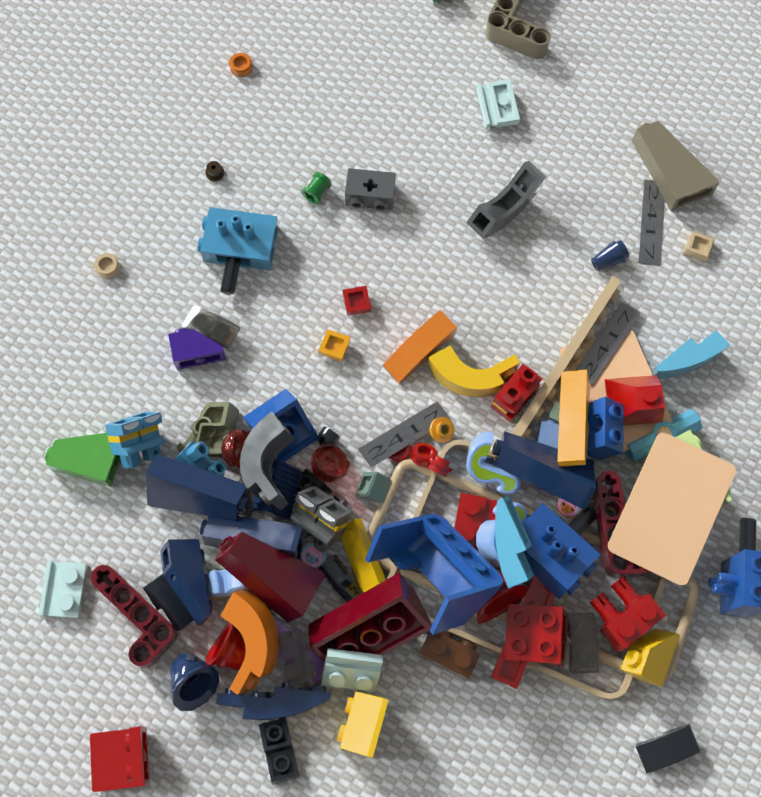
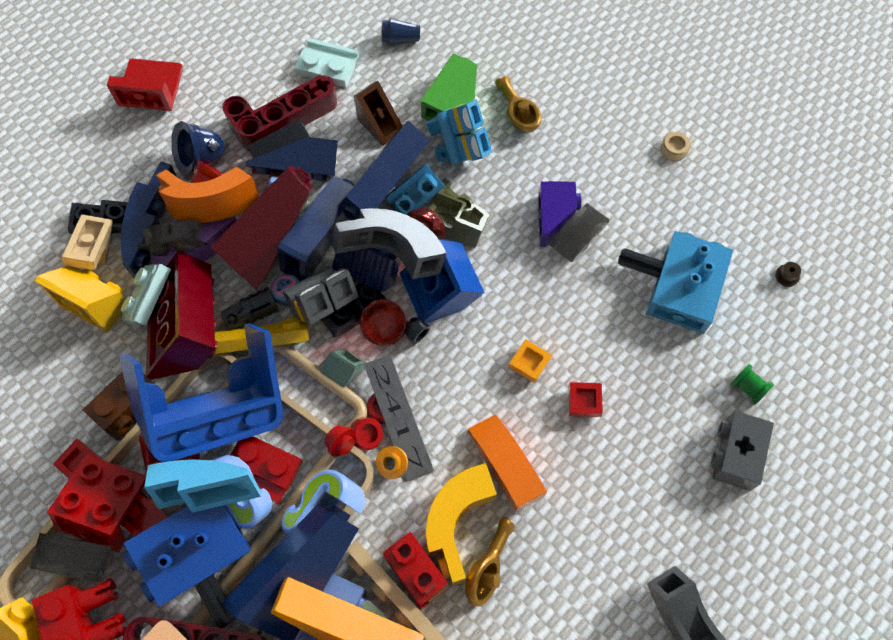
camera: 105 degrees right, 5 degrees down
(18, 527) = (399, 32): none -> dark blue cone
(93, 396) = (521, 111): none -> pearl gold piece
(122, 520) = (376, 113): none -> reddish brown slope
(314, 740) = (88, 243): none -> tan slope
(503, 347) = (485, 572): none -> pearl gold piece

